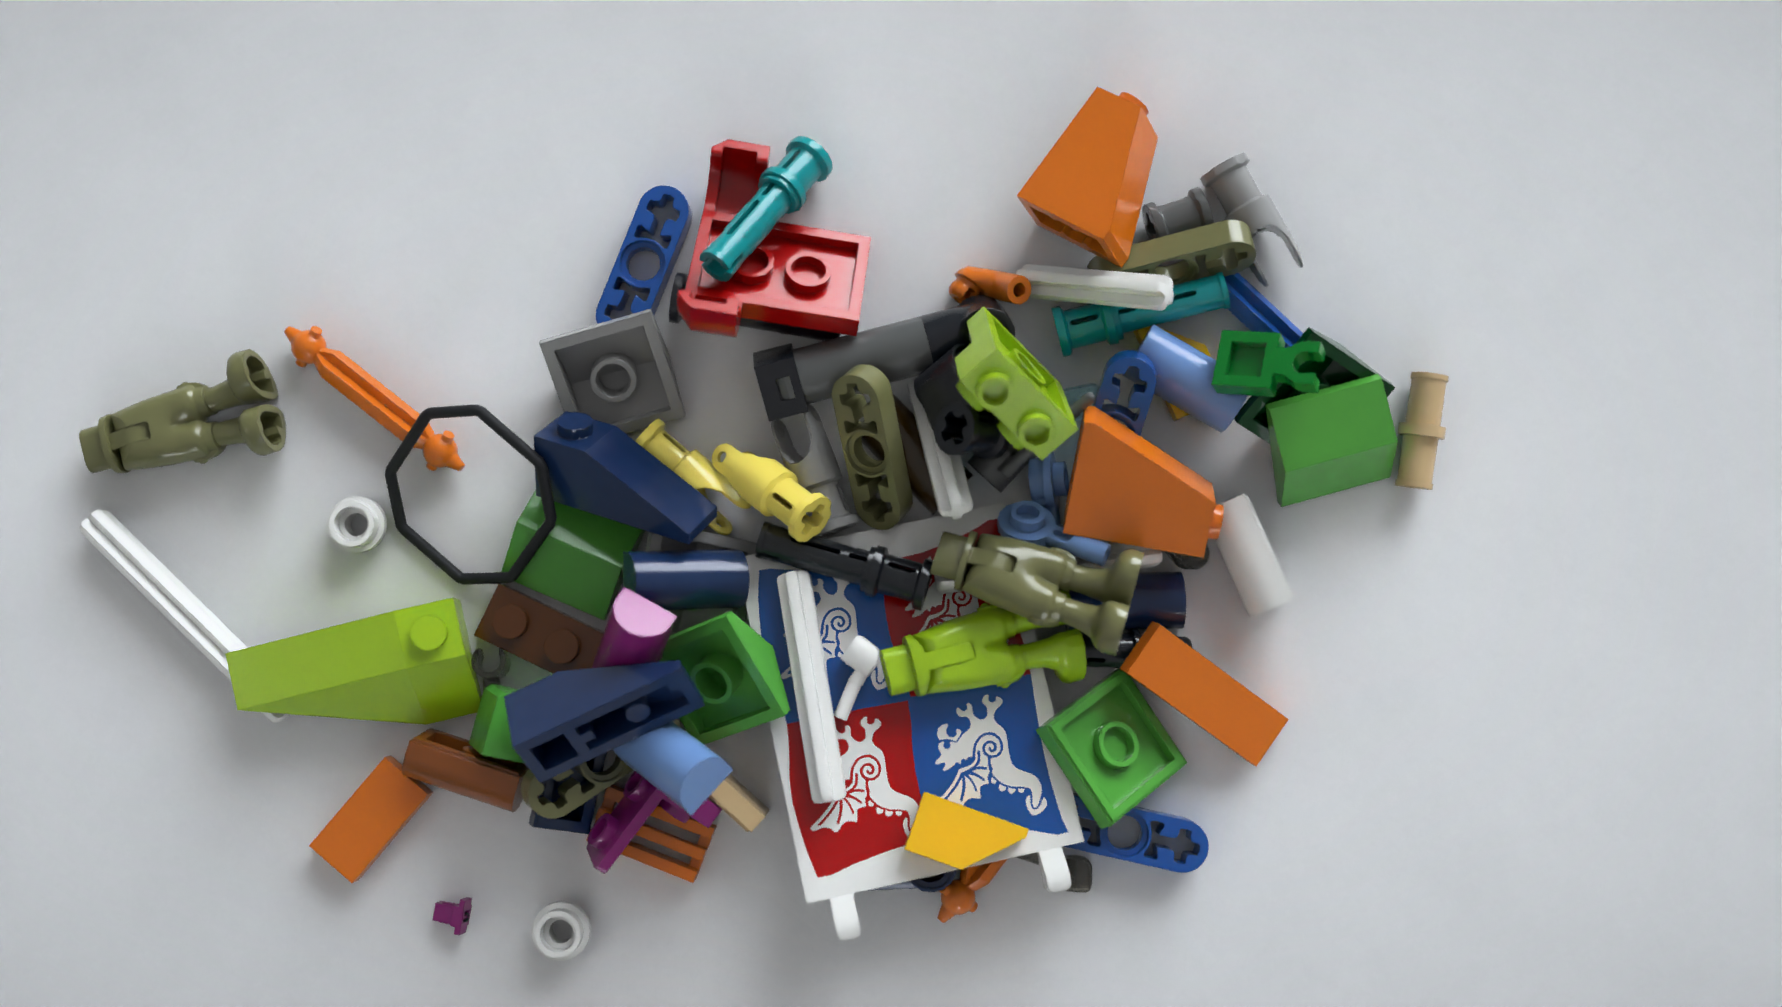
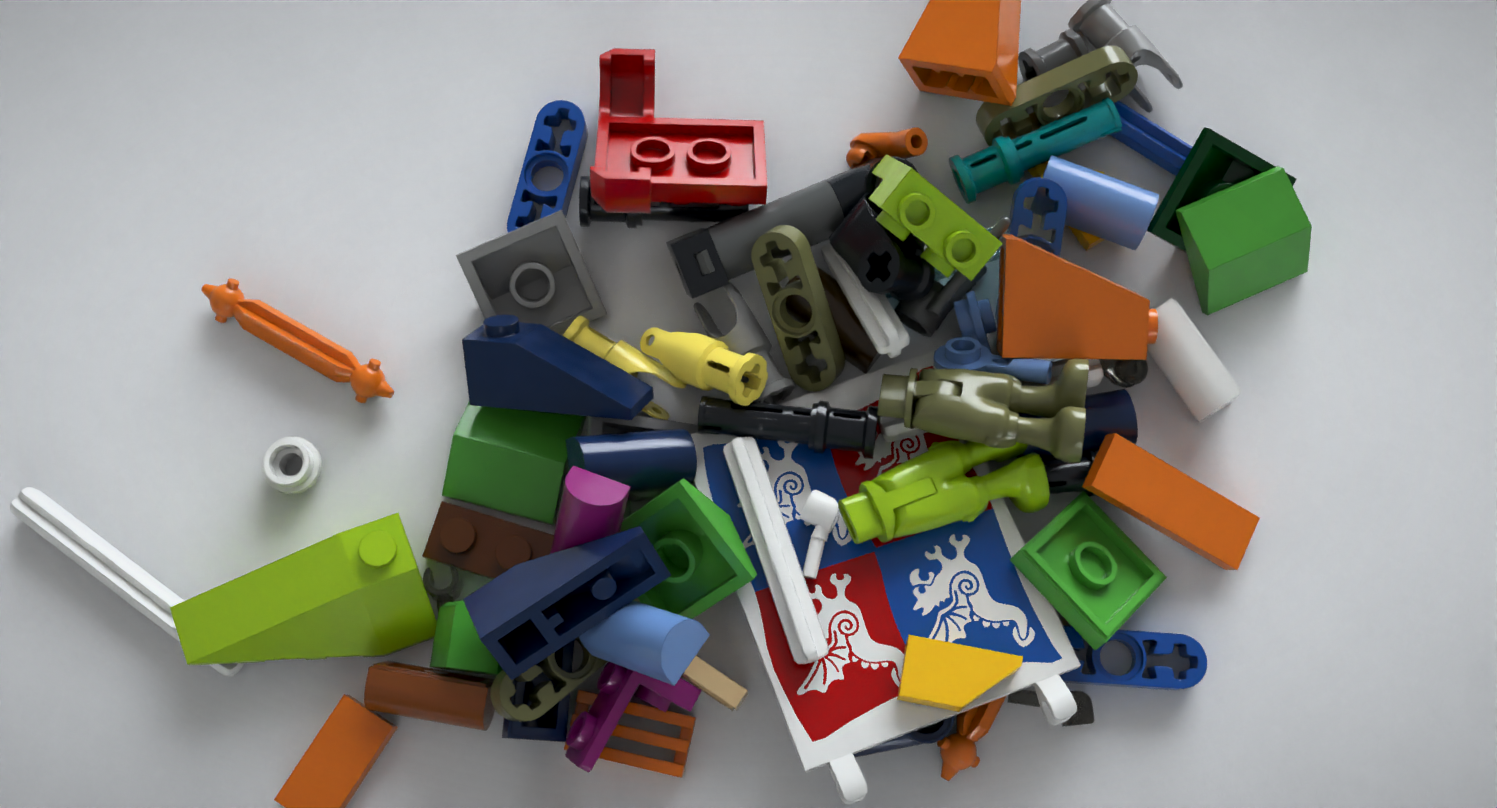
camera: 10 degrees left, 10 degrees down
(176, 424) = (102, 391): olive piece -> none
(512, 439) = (444, 349): black piece -> none
(779, 193) = (670, 87): teal pin -> none
(1099, 286) = (995, 125): white axle -> none
(1258, 361) = (1163, 164): green plate -> none
(1421, 430) = (1329, 221): tan pin -> none

